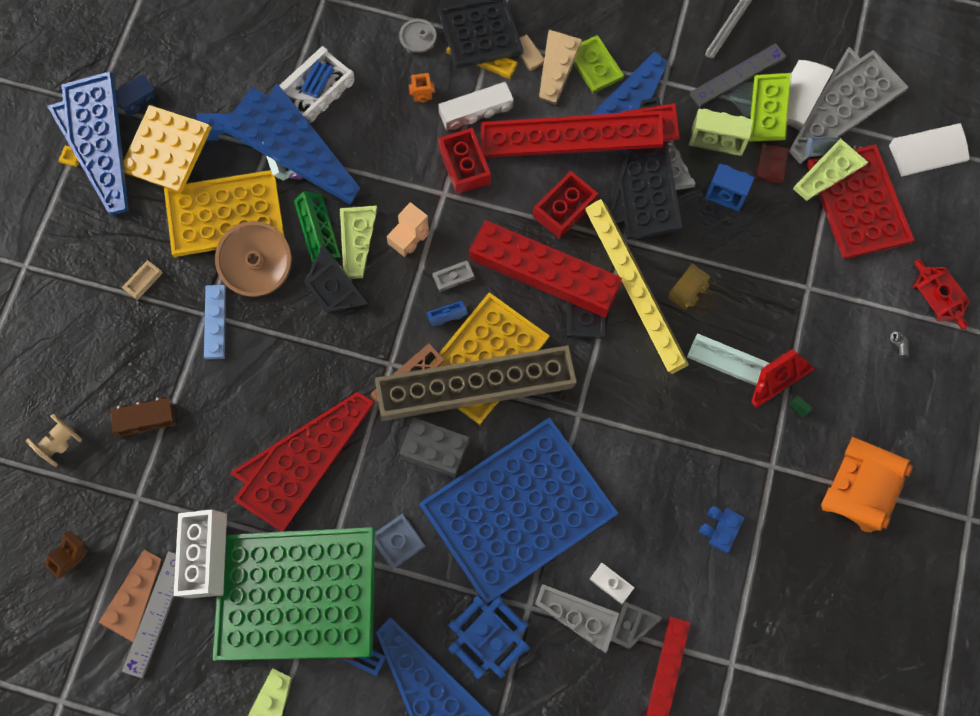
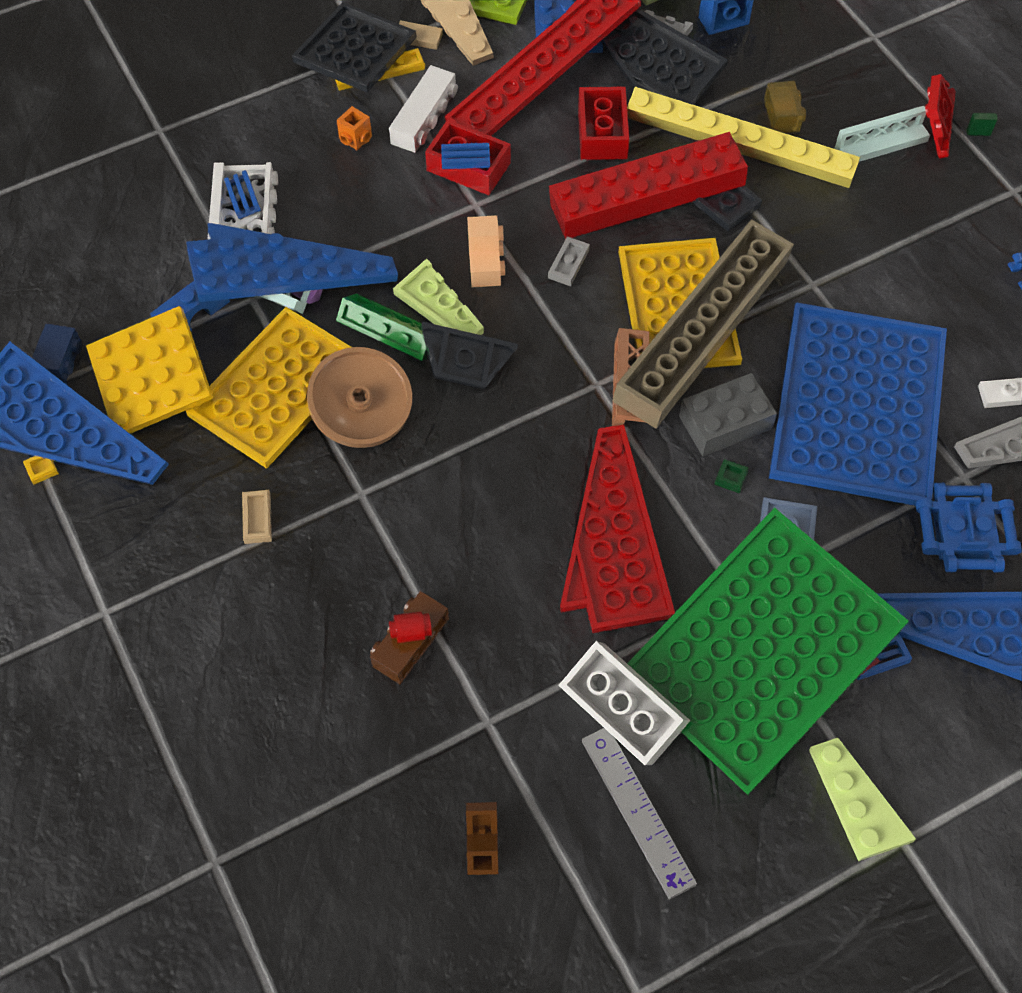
camera: 40 degrees left, 10 degrees down
(56, 442) = (345, 738): tan hose -> none
(132, 598) = (599, 825): nougat wing -> none
(139, 413) = (410, 627): none -> red brick
(215, 322) = (380, 491): light blue plate -> none
(401, 484) = (731, 476): none -> dark green tile
(417, 36) = (296, 94): light grey piece -> none
(444, 151) = (466, 155): none -> blue tile
(450, 312) = (601, 295): blue plate -> none
(901, 342) = (995, 18): dark grey arm -> none

